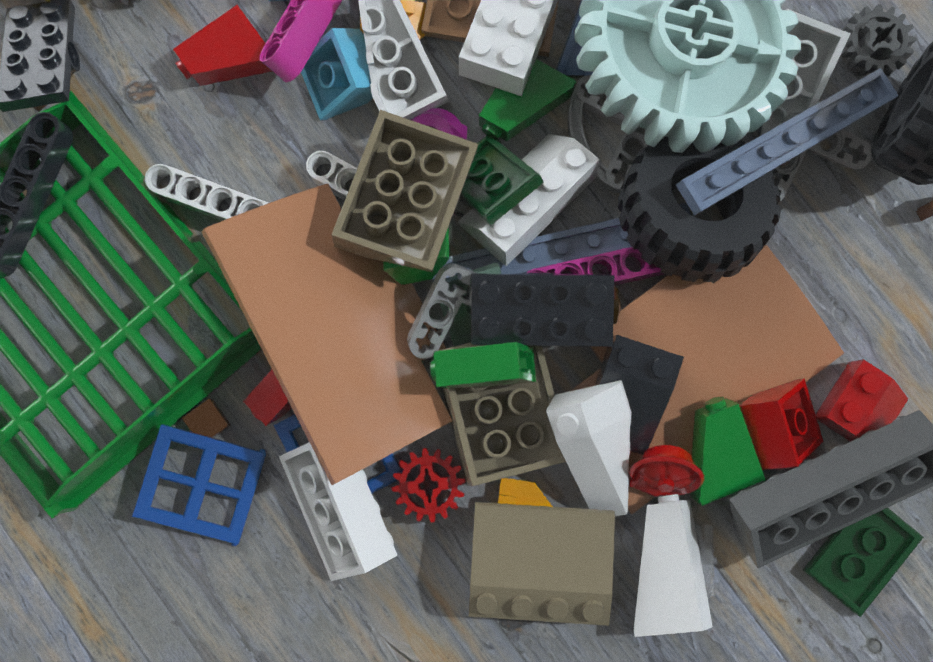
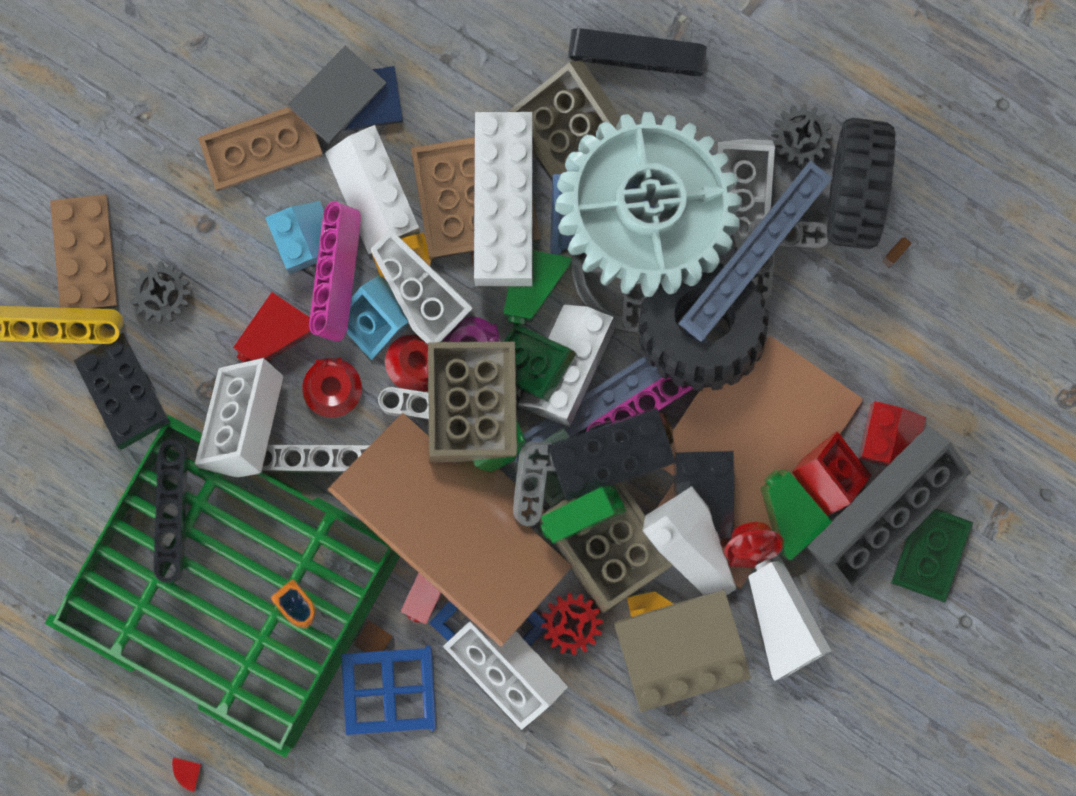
camera: 30 degrees left, 0 degrees up
(117, 348) = (295, 604): none -> rock
(147, 127) = (240, 418): none -> white slope
(265, 132) = (332, 387): none -> red piece
(351, 132) = (408, 363): none -> red piece

